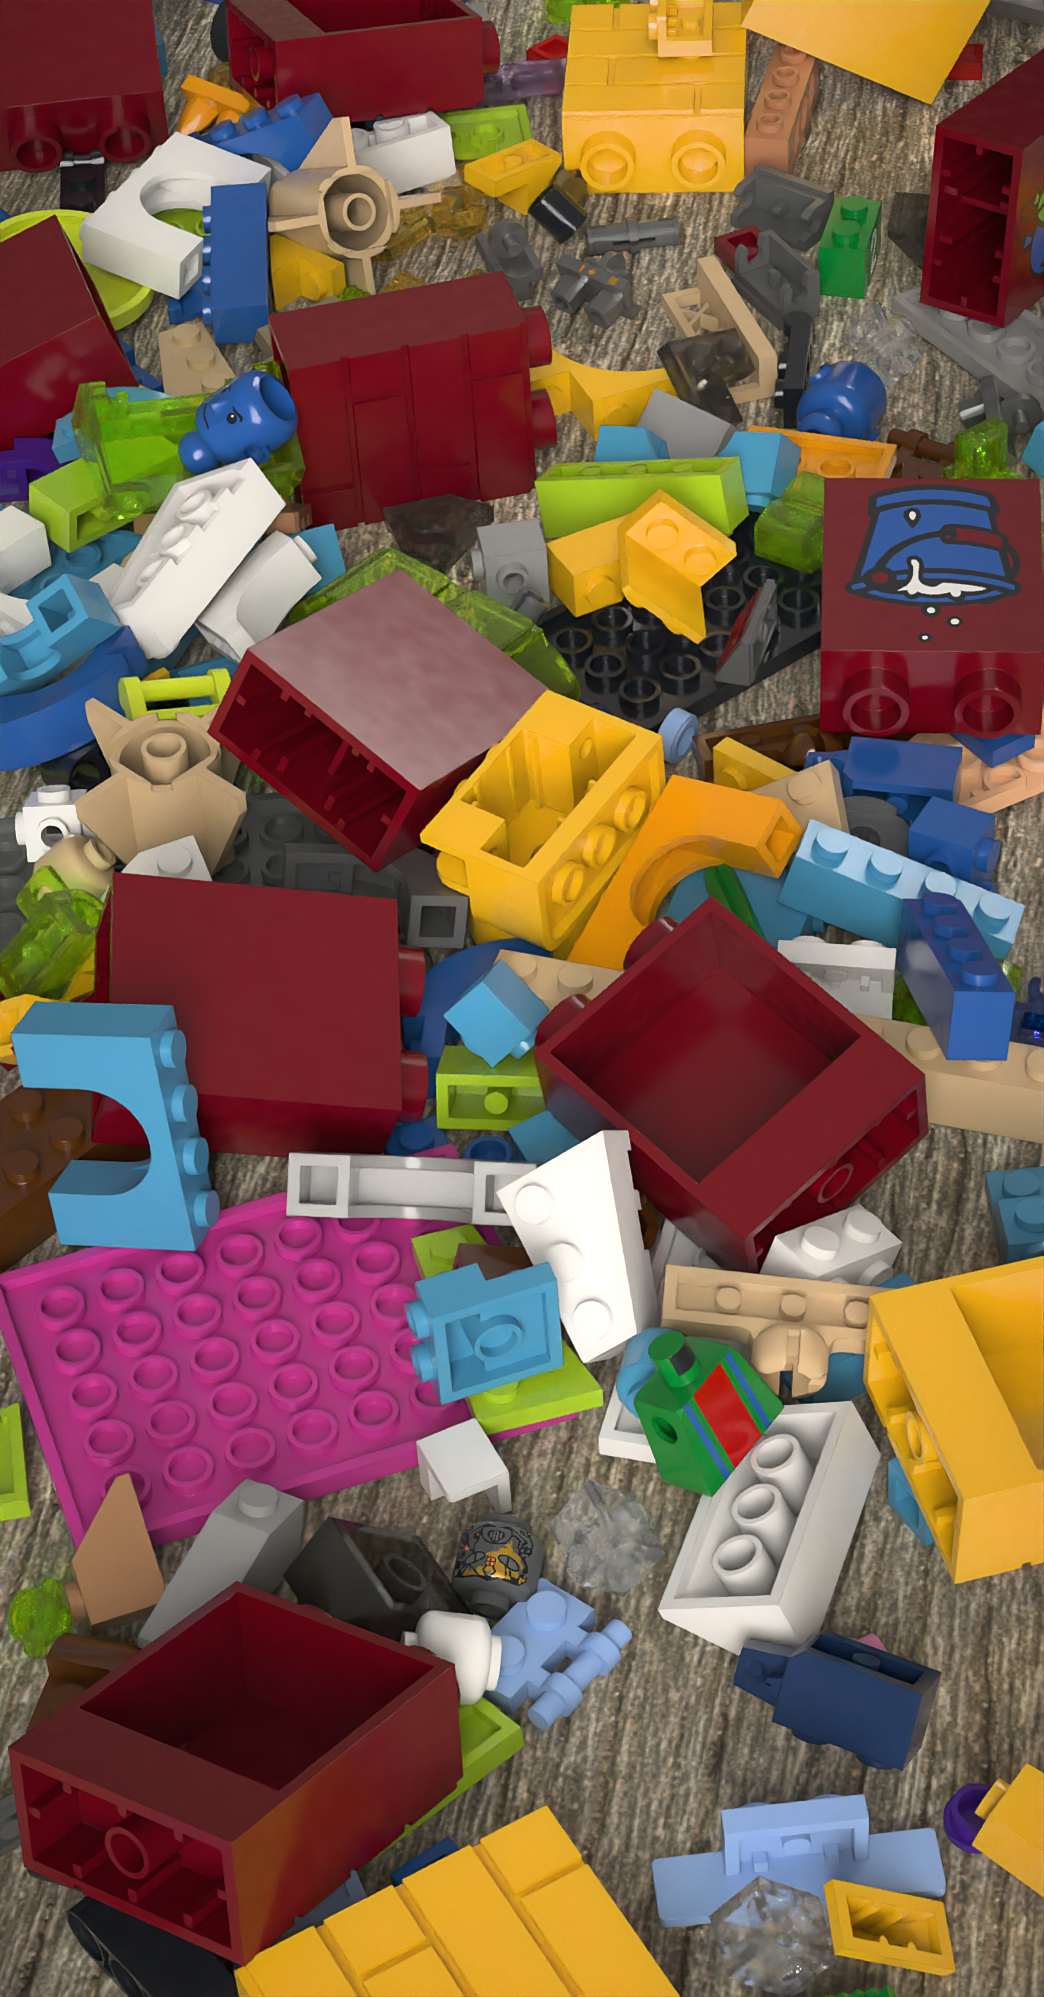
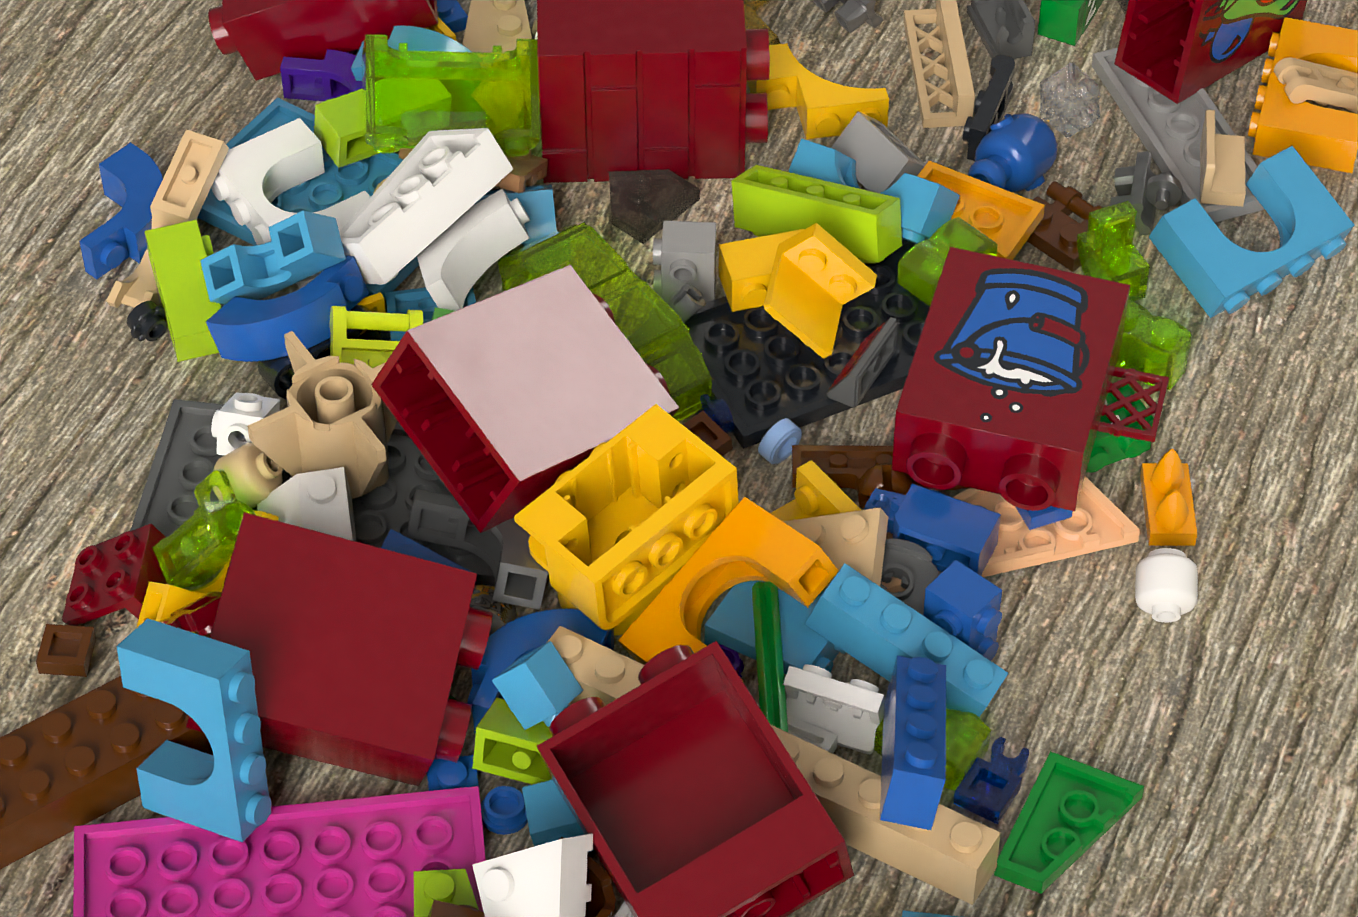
camera: 10 degrees right, 5 degrees up
(240, 422) = (493, 91): blue piece -> none
(400, 1186) = (389, 816): light grey arch -> none
(703, 366) = (905, 95): clear smoke plate -> none

